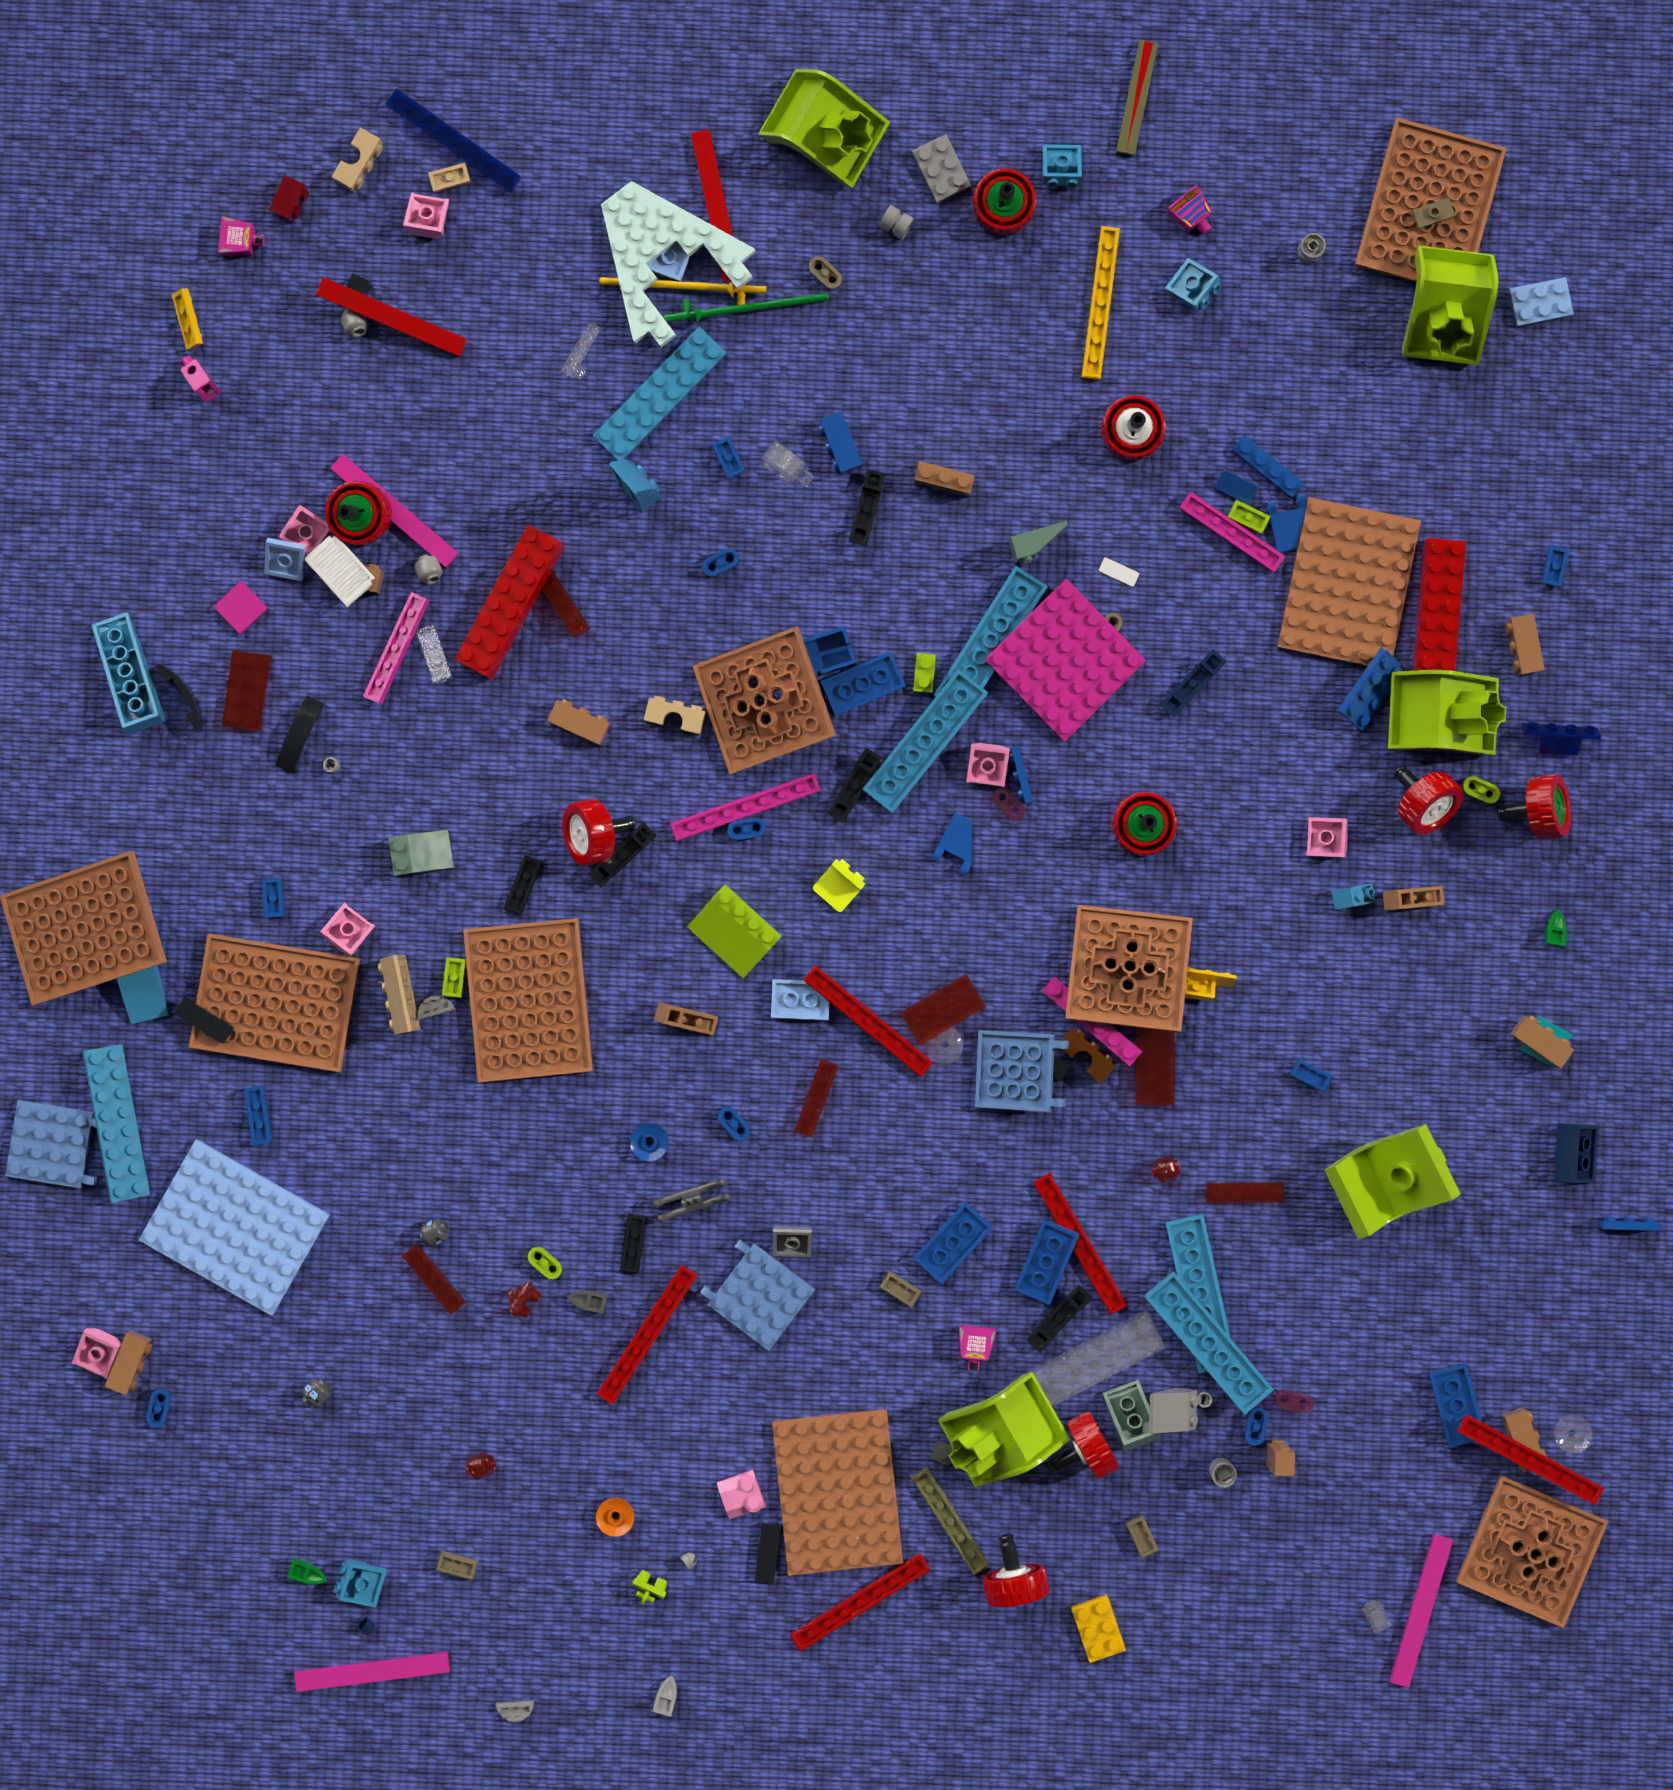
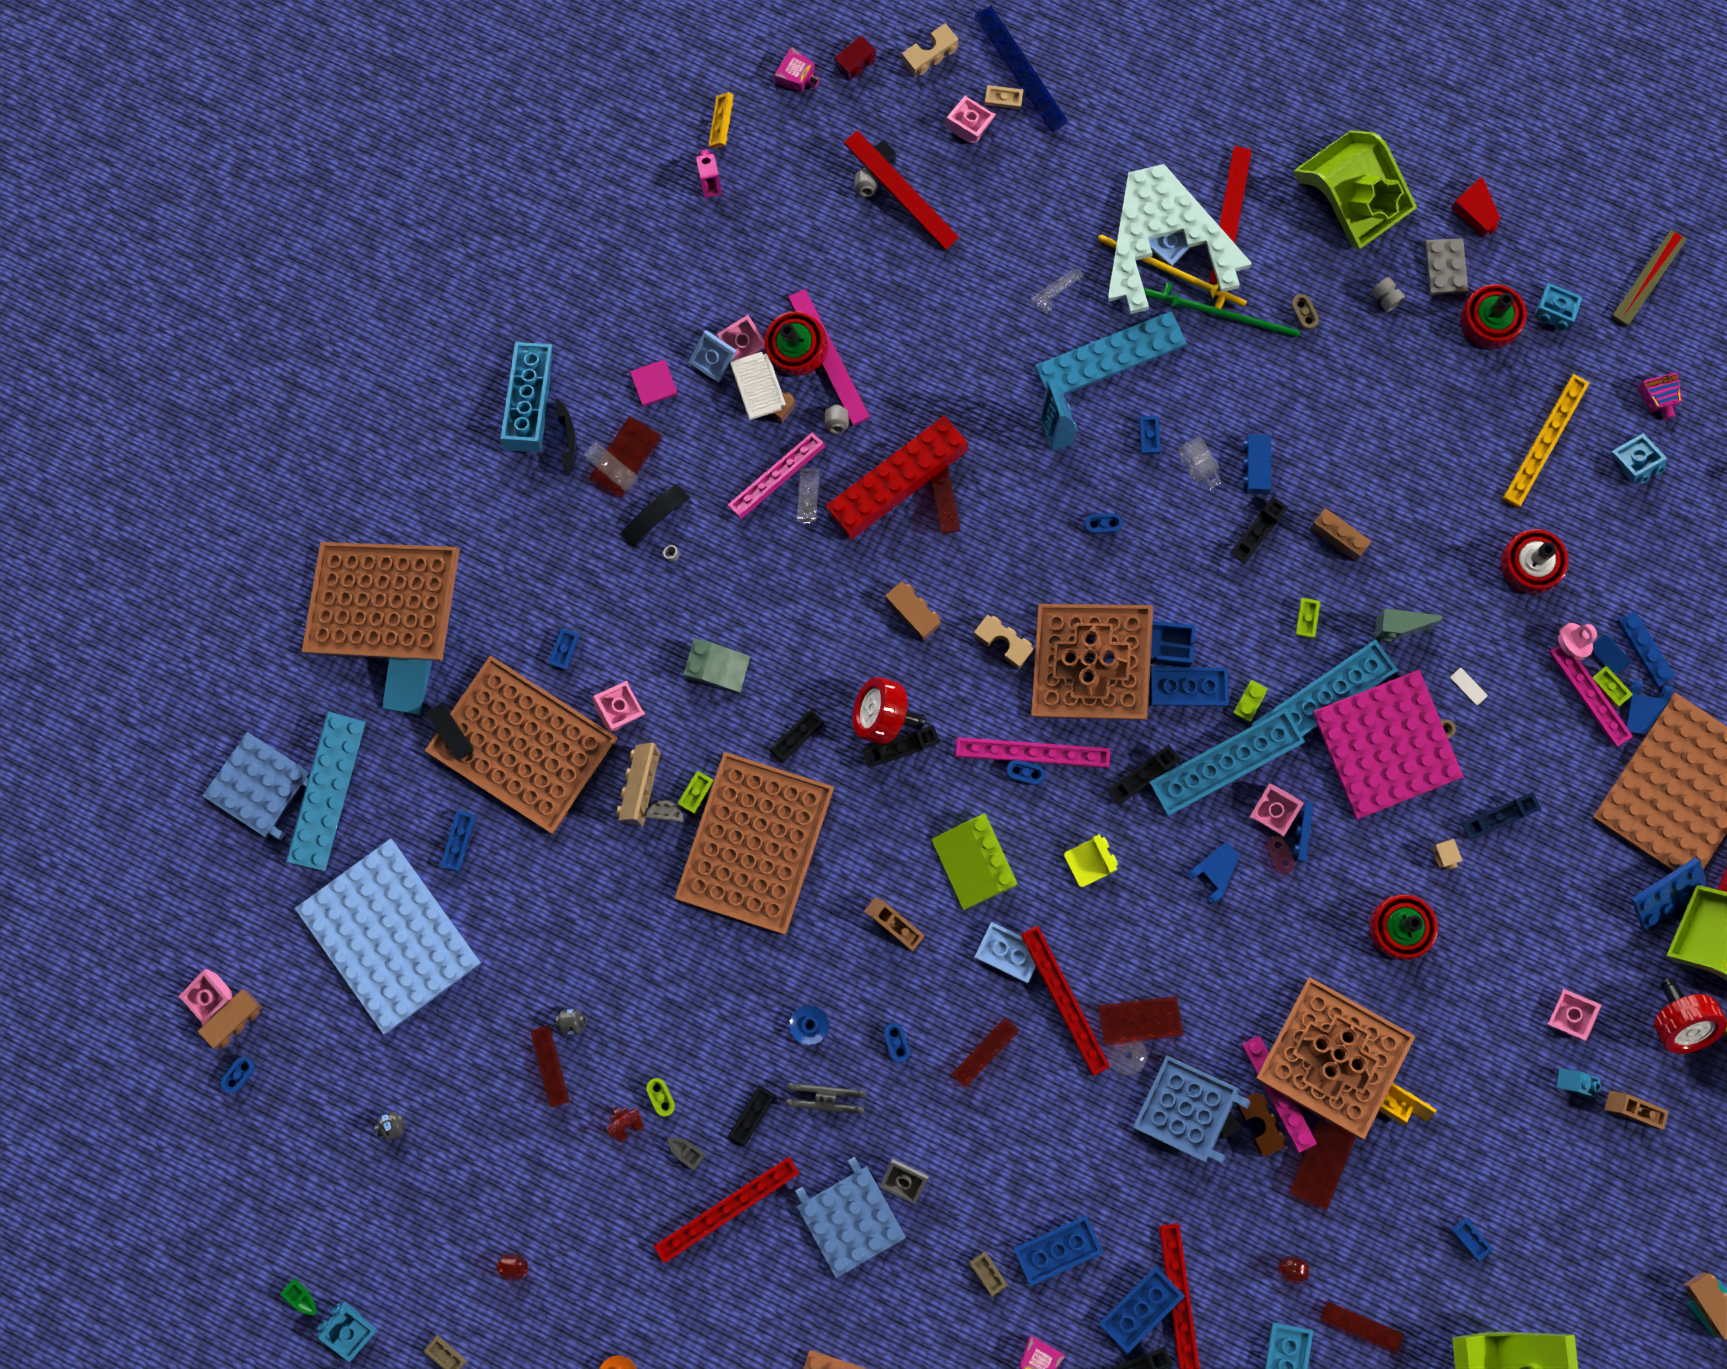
camera: 25 degrees right, 10 degrees down
(237, 707) = (610, 466): none -> clear hinge
(945, 572) = (1307, 618): none -> lime plate
(948, 97) = (1478, 209): none -> red slope
(1158, 739) = (1447, 854): none -> tan brick
(1200, 487) = (1576, 641): none -> bright pink tile

